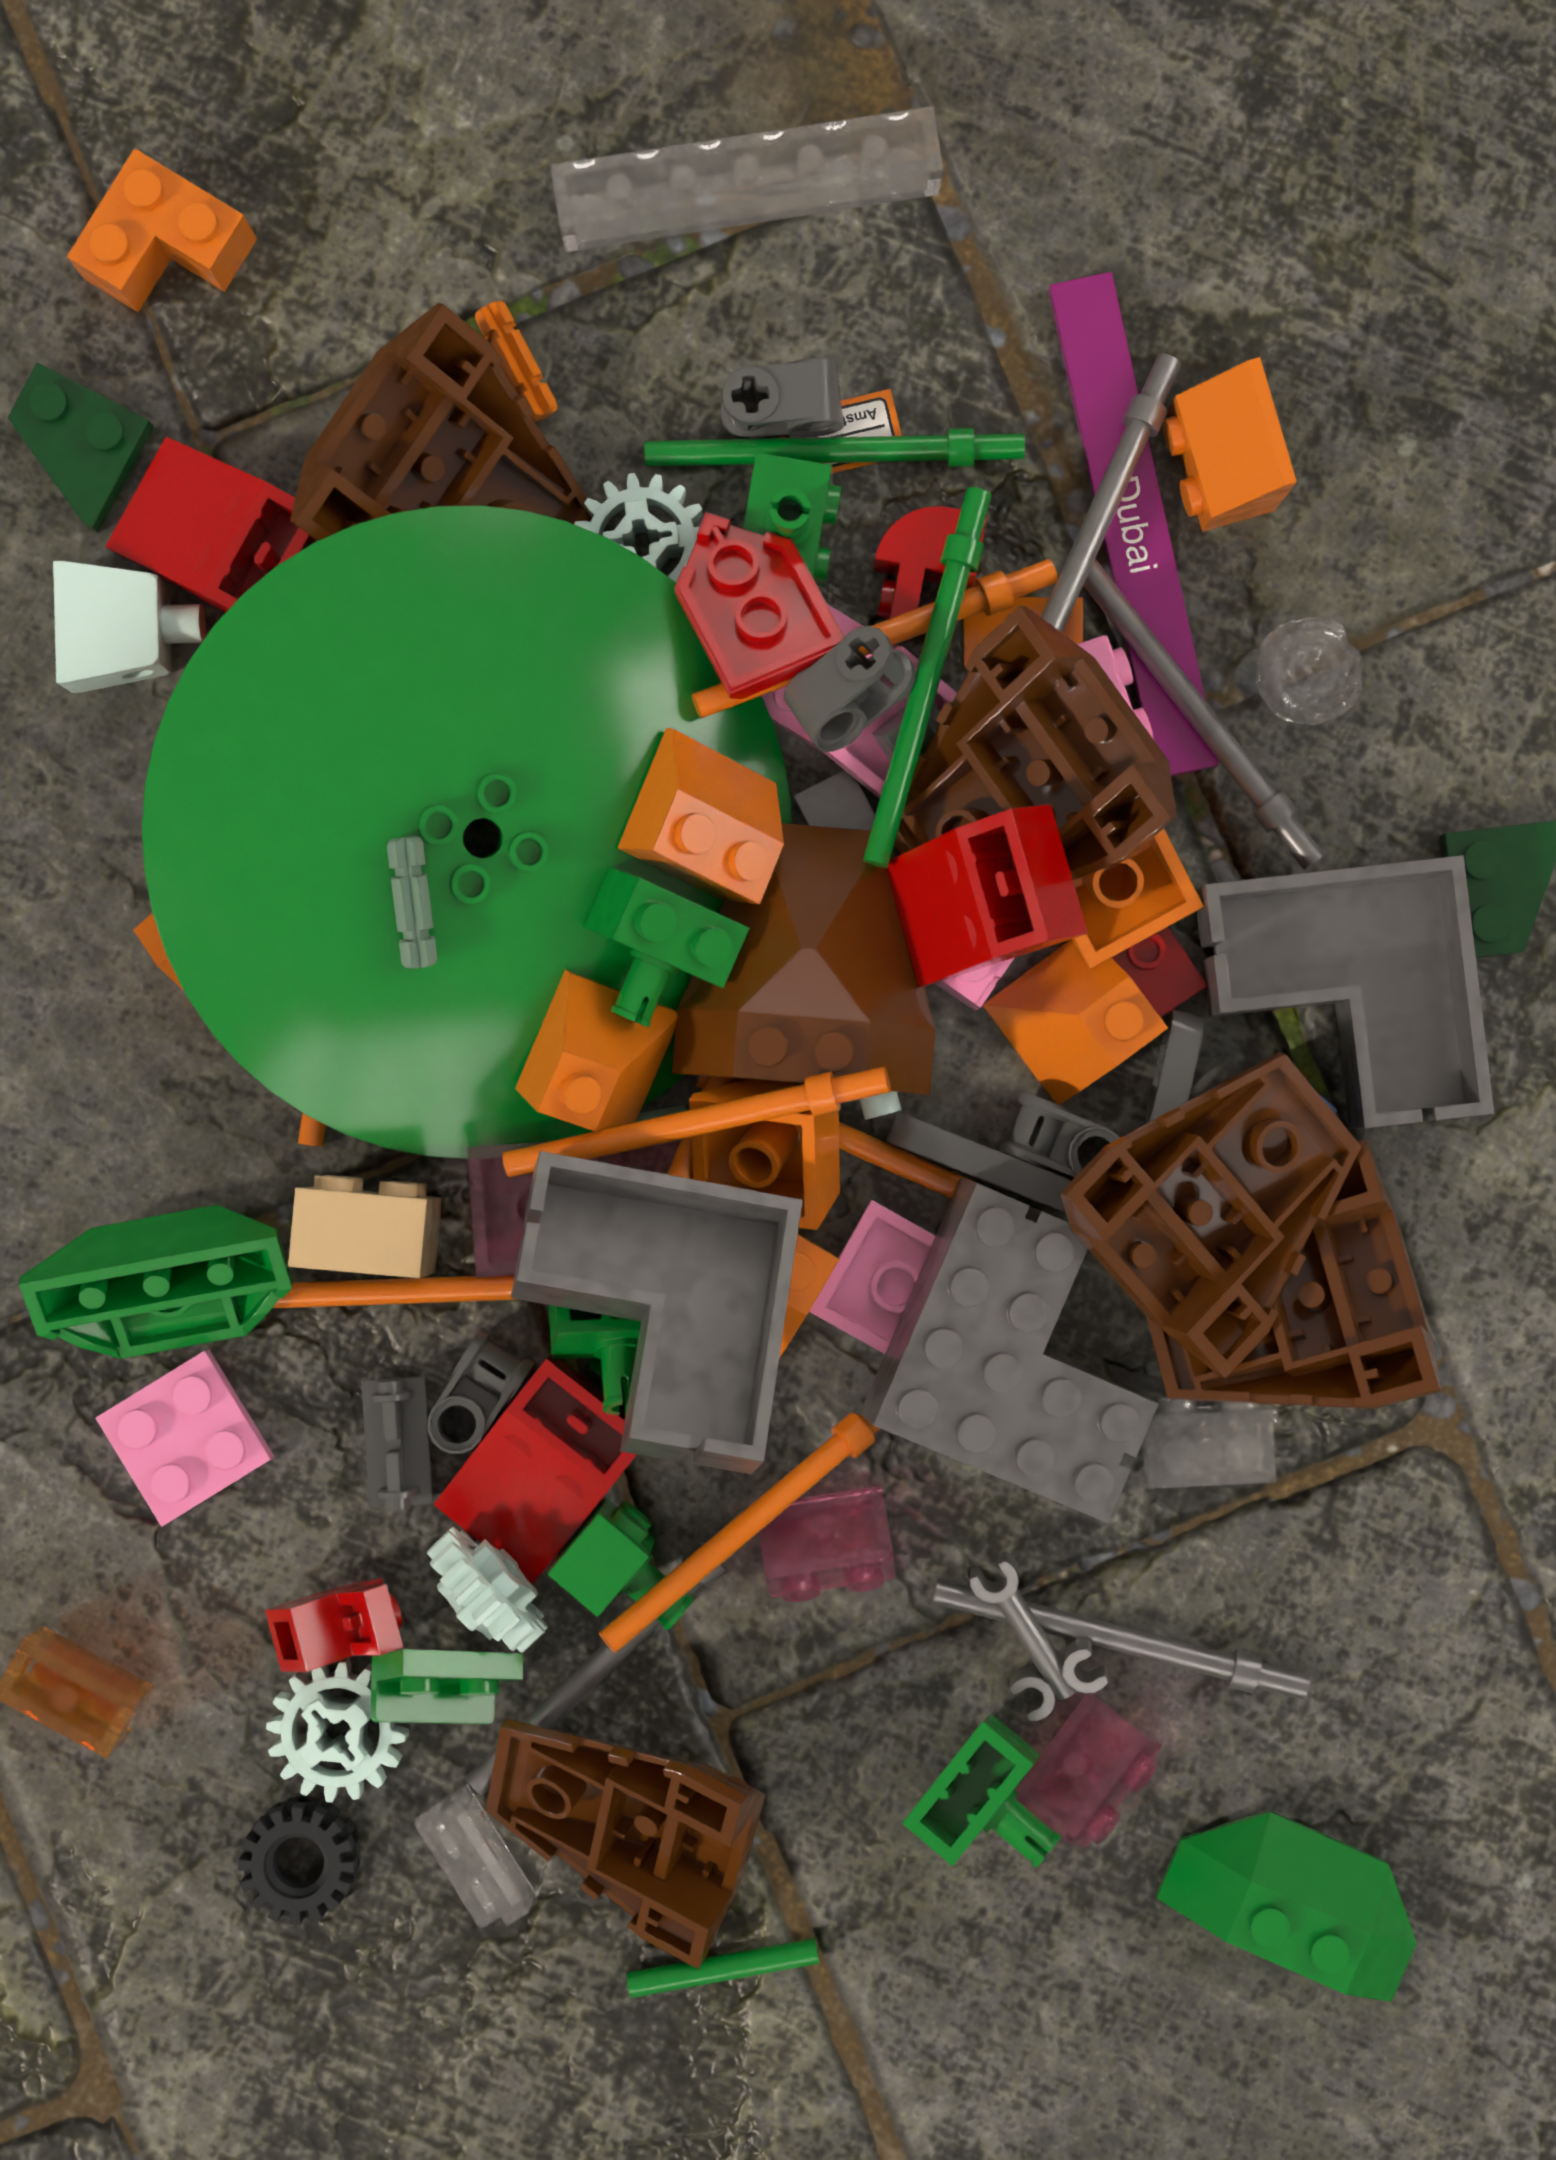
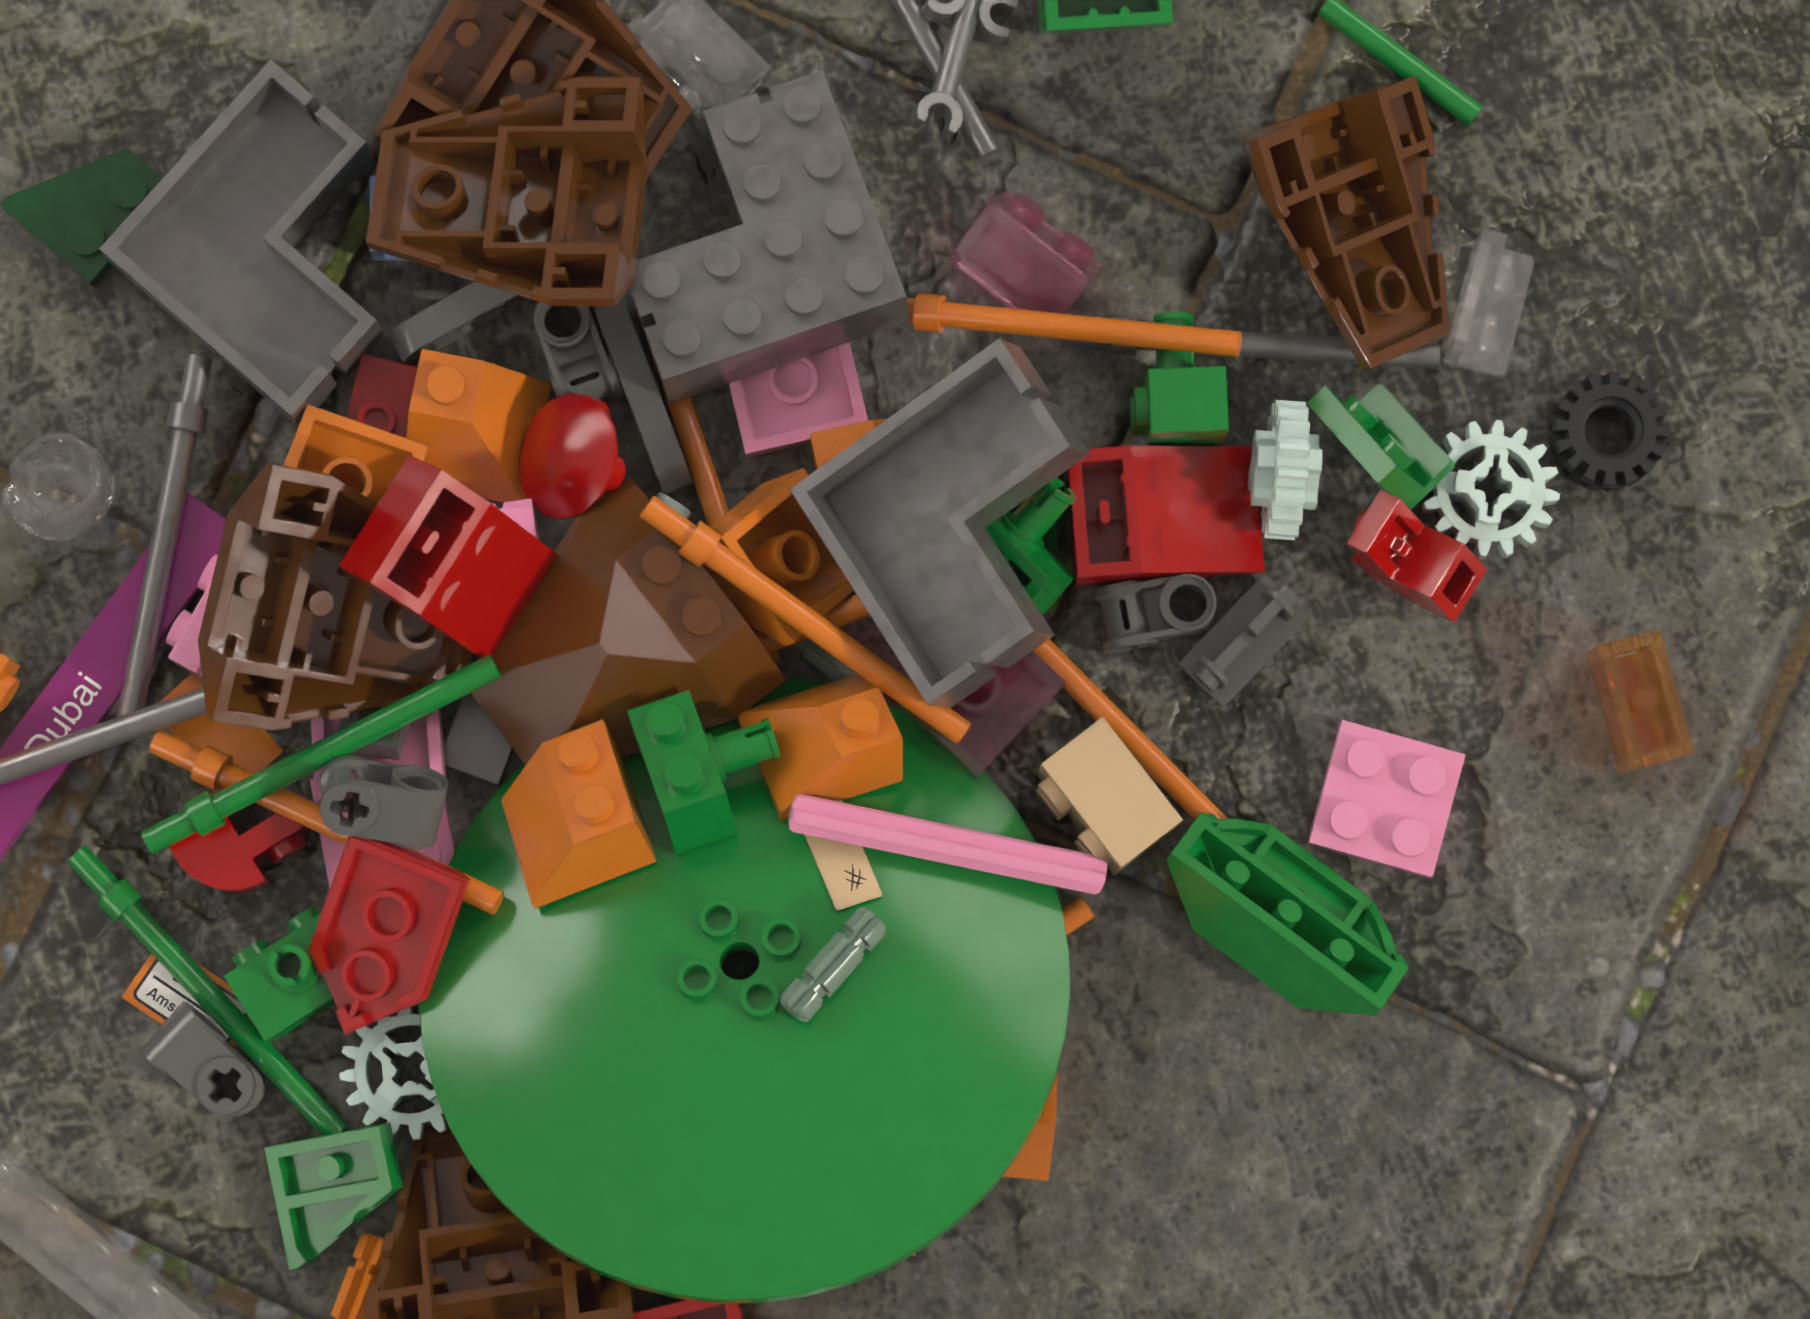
camera: 140 degrees left, 5 degrees down
(432, 1074) = (947, 844): none -> bright pink axle
(497, 987) = (844, 871): none -> tan sticker
(611, 410) = (330, 1186): none -> green wing
(986, 1066) = (570, 456): none -> red dish

